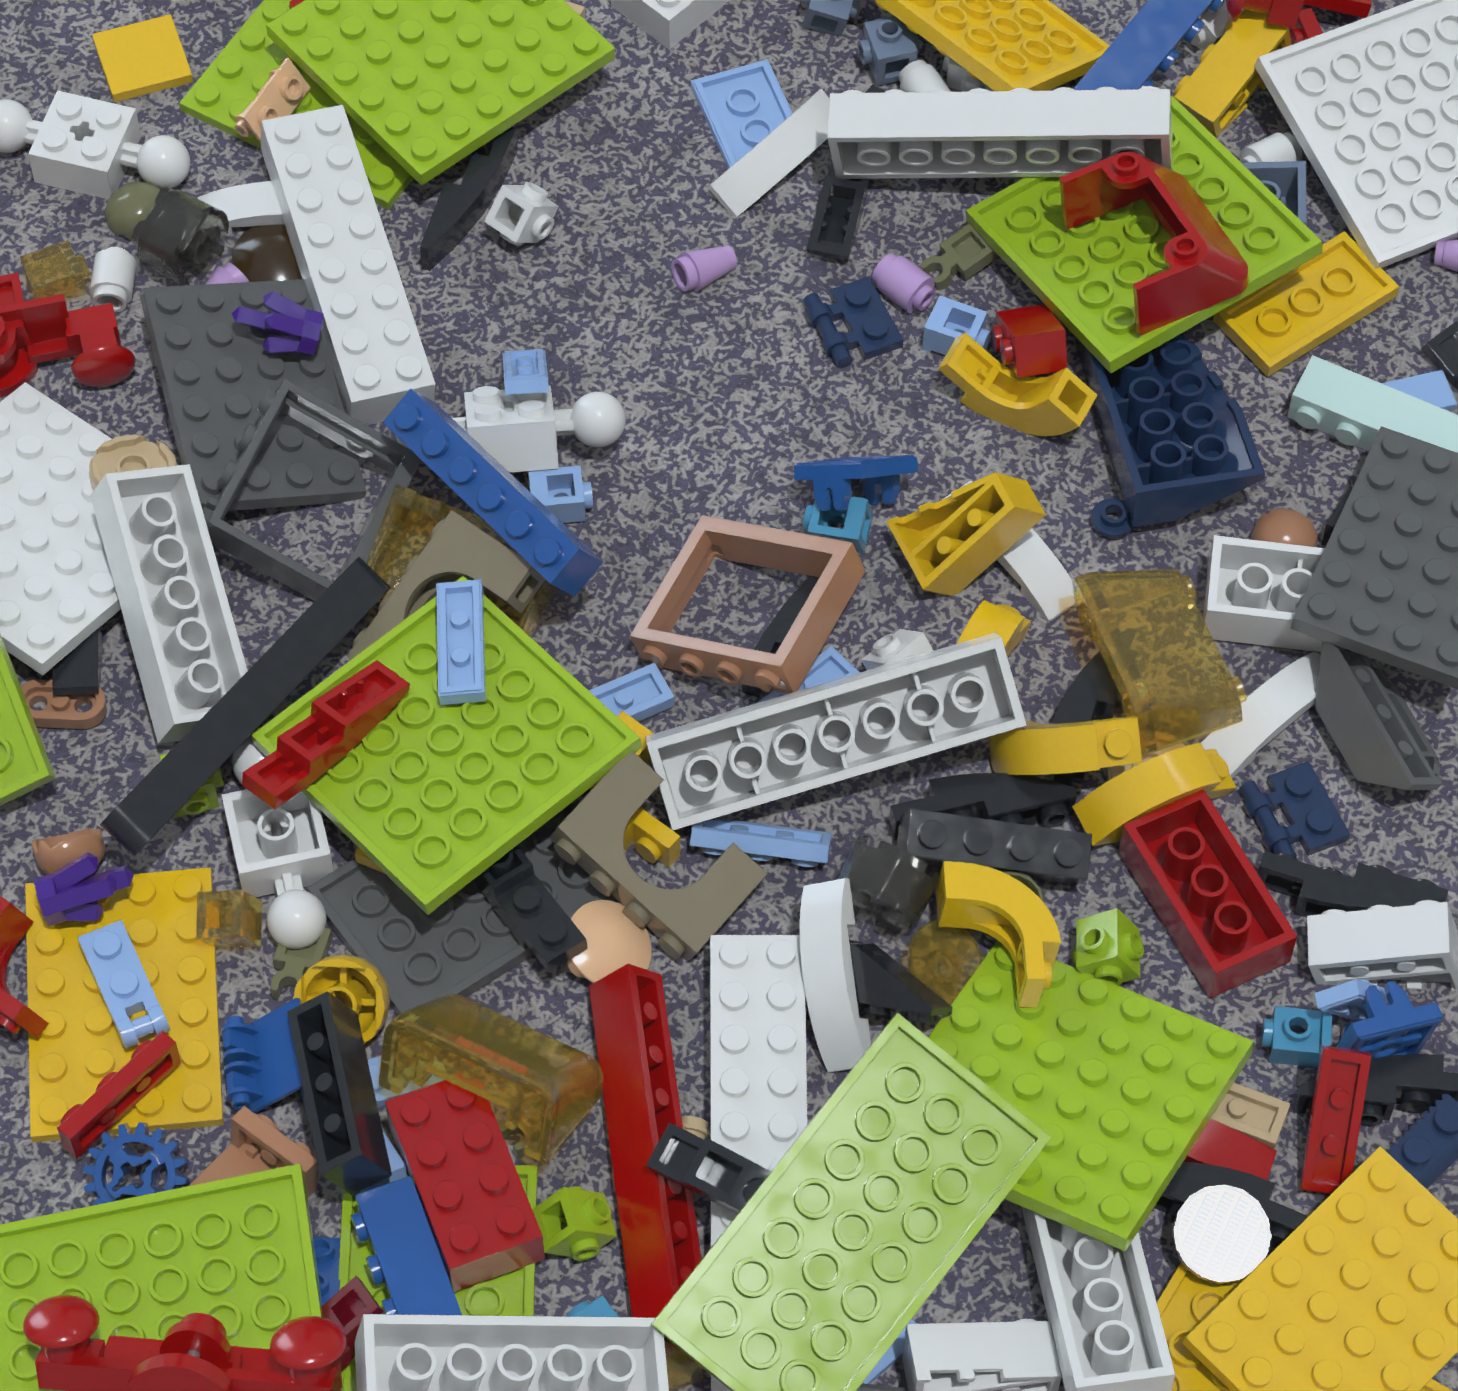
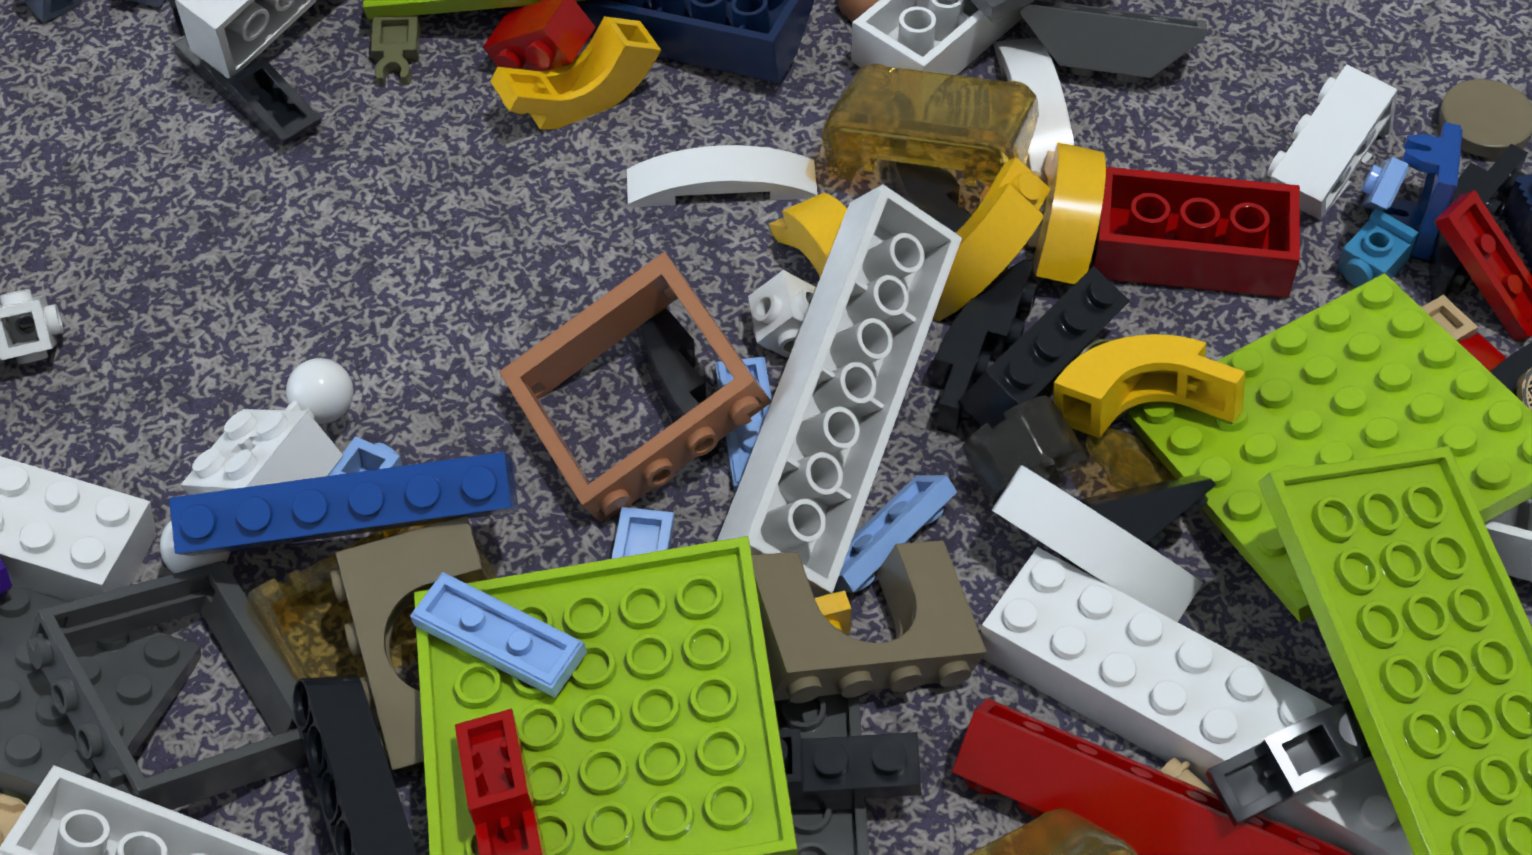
camera: 55 degrees left, 5 degrees down
(525, 372) = (211, 418): light blue tile -> none
(610, 941) = (914, 711): light nougat dish -> none
(701, 267) = (220, 230): lavender cone -> none
(741, 107) = (97, 110): light blue tile -> none
(774, 156) = (164, 110): white slope -> none
(834, 476) = (566, 228): blue piece -> none
(856, 521) = (592, 264): dark azure brick -> none
(864, 316) = (387, 146): dark blue plate -> none
(904, 283) = (386, 96): lavender brick -> none
(951, 320) = (466, 89): light blue brick -> none
(966, 532) = (701, 182): yellow wedge -> none
(1108, 947) = (1207, 322): lime brick -> none
(1111, 527) = (750, 102): dark blue plate -> none
(1304, 804) = (1146, 130): dark blue plate -> none
(1329, 889) = (1261, 135): black slope -> none

